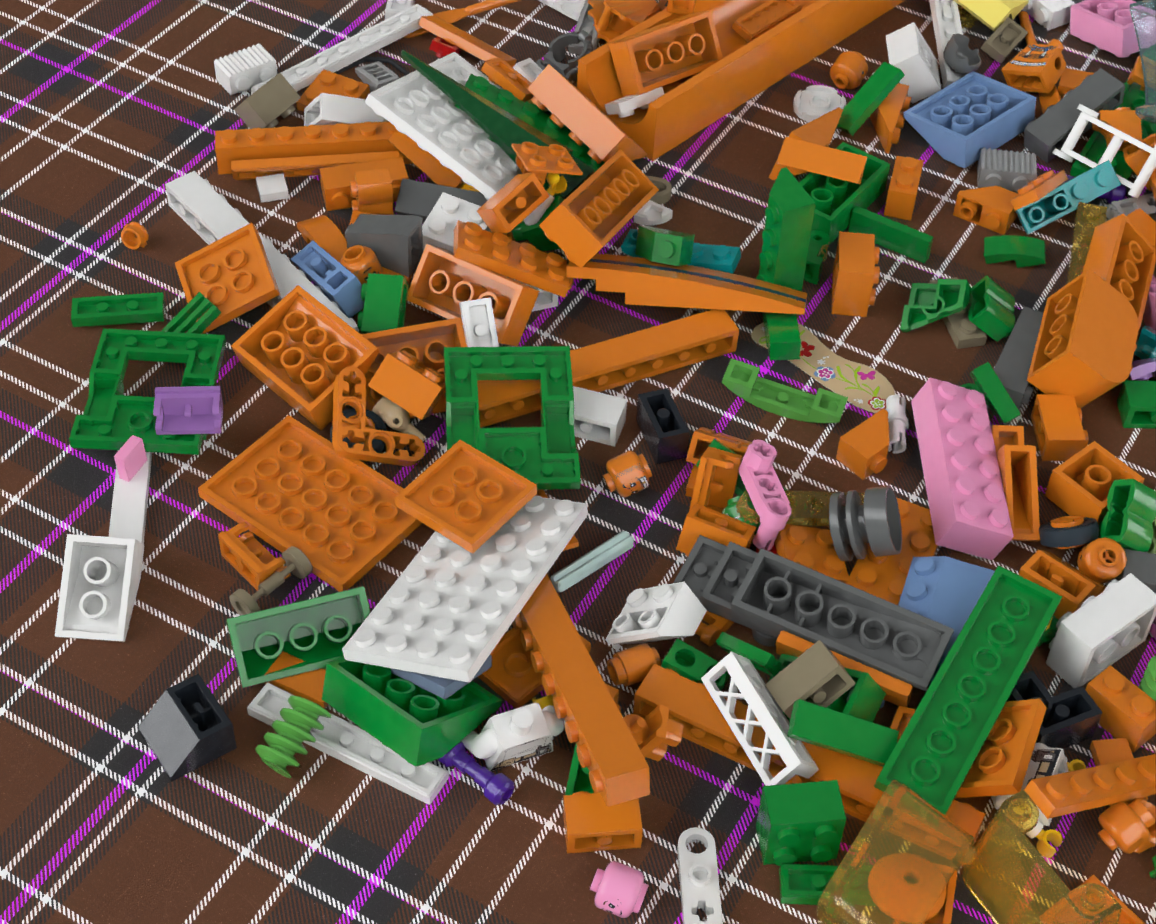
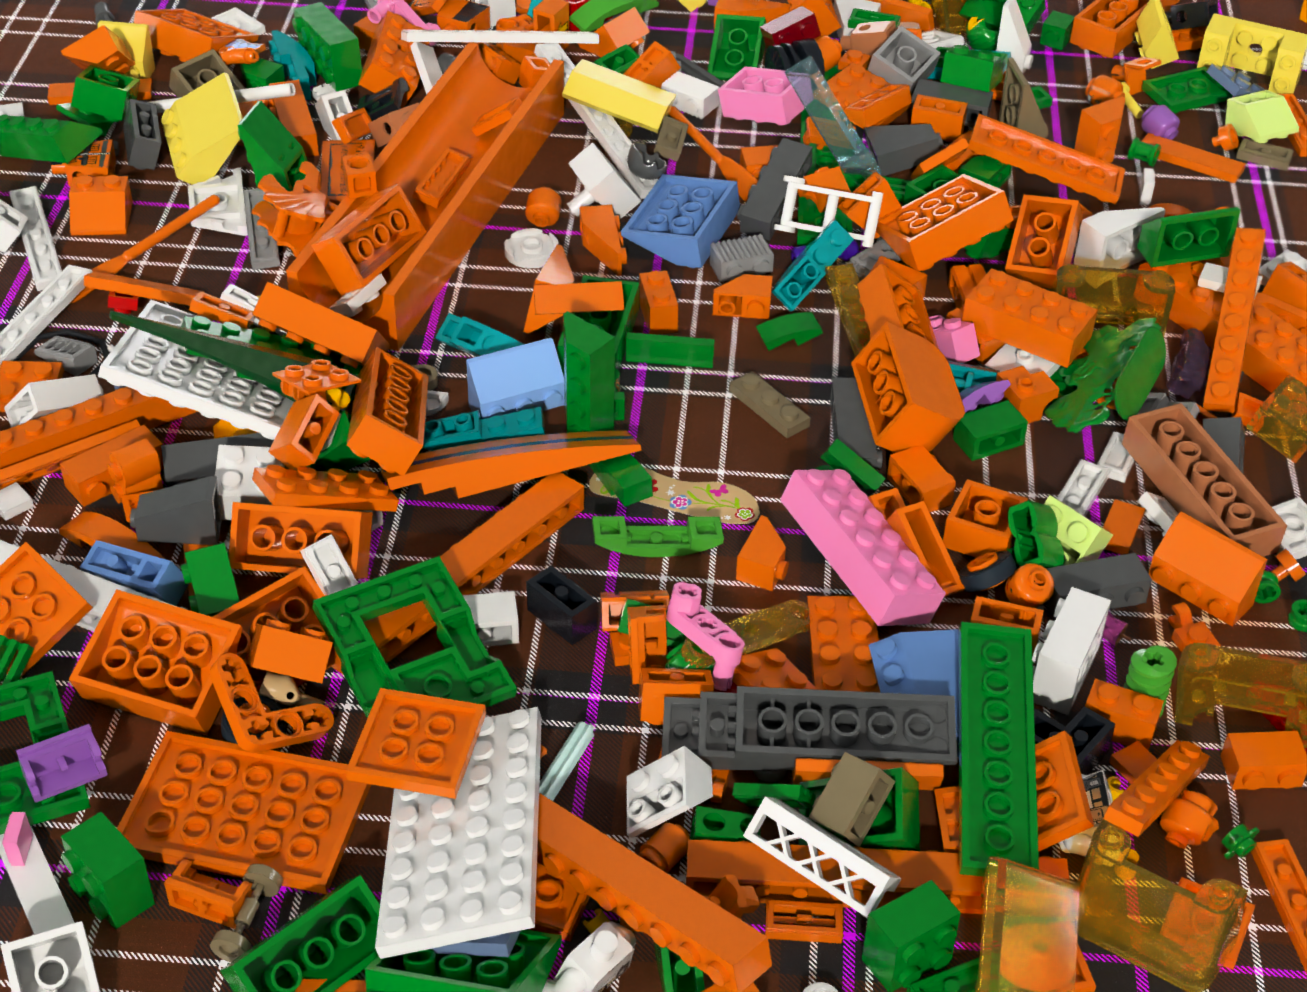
camera: 25 degrees left, 5 degrees down
(179, 508) = (107, 871): none -> green brick
(361, 261) = (165, 544): orange head -> none
(425, 161) = (180, 422): orange tile -> none
(558, 52) = (244, 272): dark grey piece -> none
(627, 474) = (552, 664): orange head -> none
(664, 246) = (467, 428): green slope -> none
(719, 776) = (804, 926): none -> orange tile
(728, 216) = (515, 379): none -> light blue slope
(729, 181) = (473, 336): none -> teal slope
(841, 732) = (907, 834): green tile -> none
(854, 274) = (662, 397): orange brick -> none
(858, 524) = (813, 628): dark grey wheel -> none
(869, 97) = (583, 225): green tile -> none
(897, 423) = (767, 508): white pin -> none
(934, 301) = (748, 400): green slope -> none
(992, 309) = (803, 389): green brick -> none
(1036, 67) = (717, 154): orange torso -> none
(1038, 188) = (785, 265): orange plate -> none

